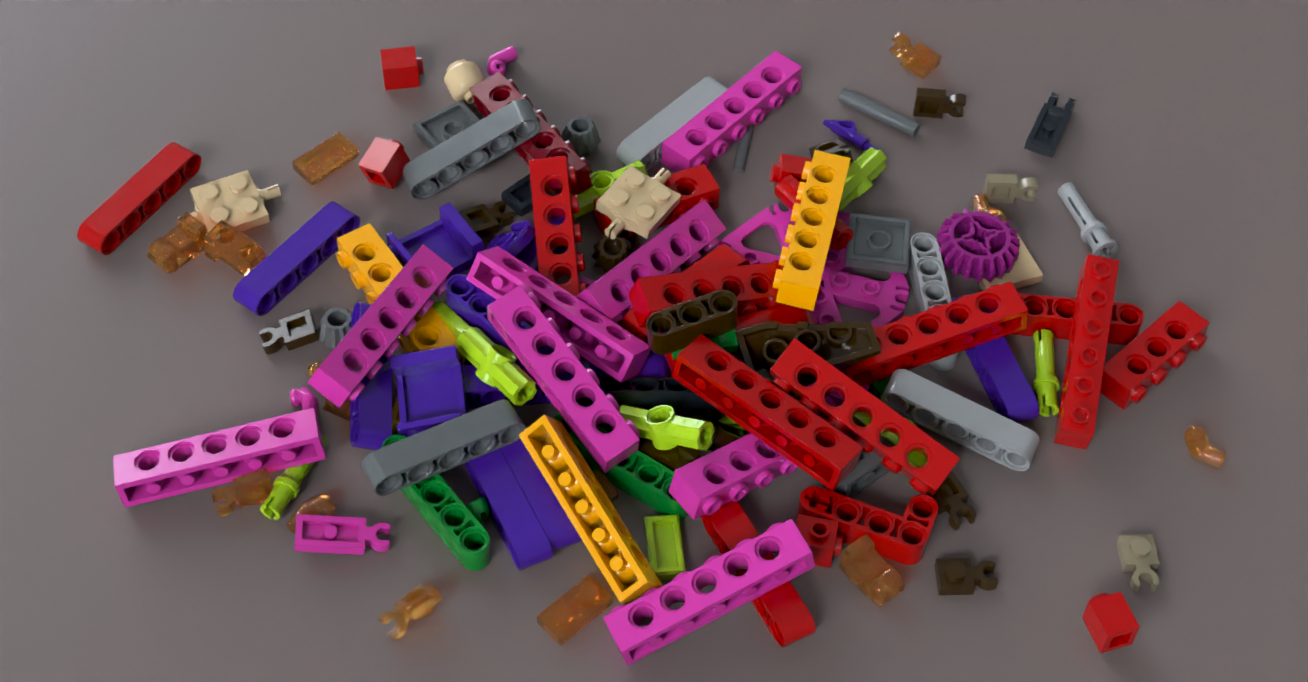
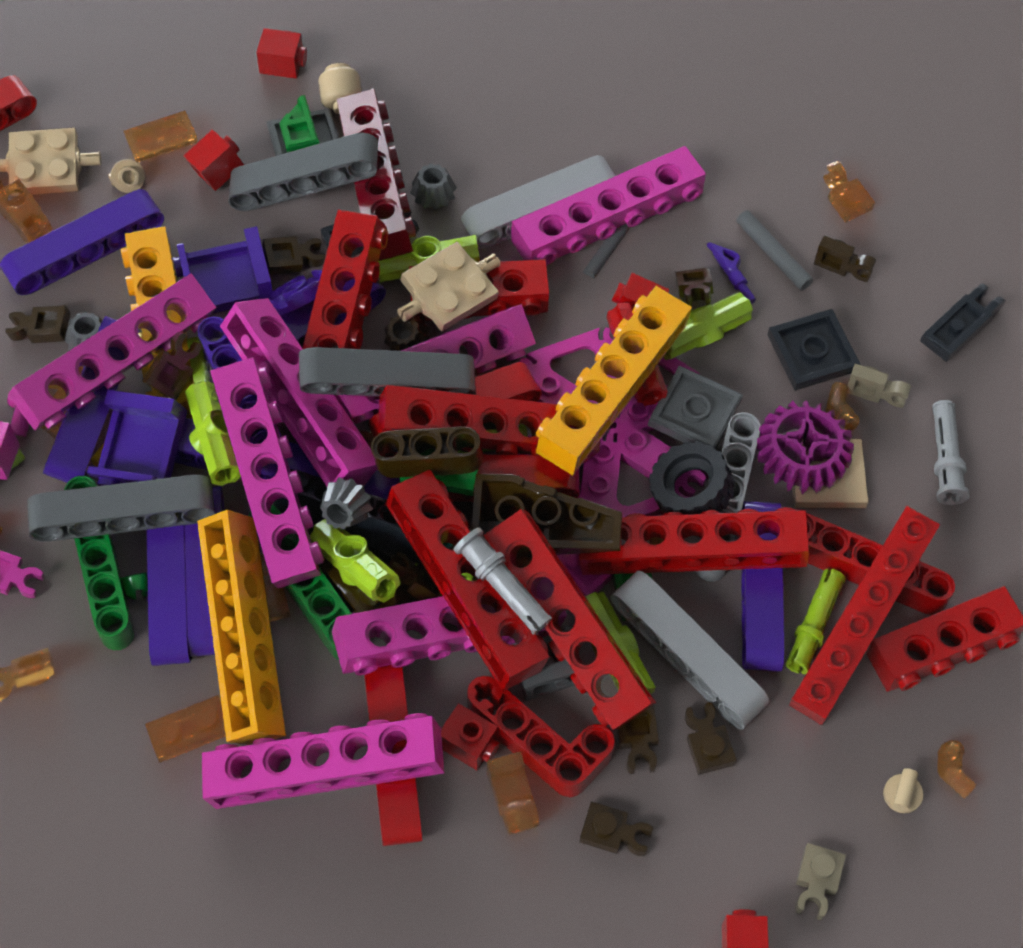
camera: 20 degrees right, 10 degrees up
(310, 197) = (127, 175): none -> tan plate
(435, 327) = (169, 371): none -> dark brown plate
(445, 120) = (298, 127): none -> green tile
(498, 61) = (387, 74): dark pink arm -> none
(616, 274) = (369, 371): none -> dark grey beam
(639, 383) = (345, 503): none -> dark grey piece
(664, 545) = (311, 689): lime tile -> none
(788, 389) = (491, 567): none -> light grey pin
(899, 274) = (686, 458): none -> black tyre
(946, 175) = (813, 349): none -> black plate
(1006, 490) = (709, 745): none -> dark brown plate
(1172, 475) = (903, 792): none -> tan plate

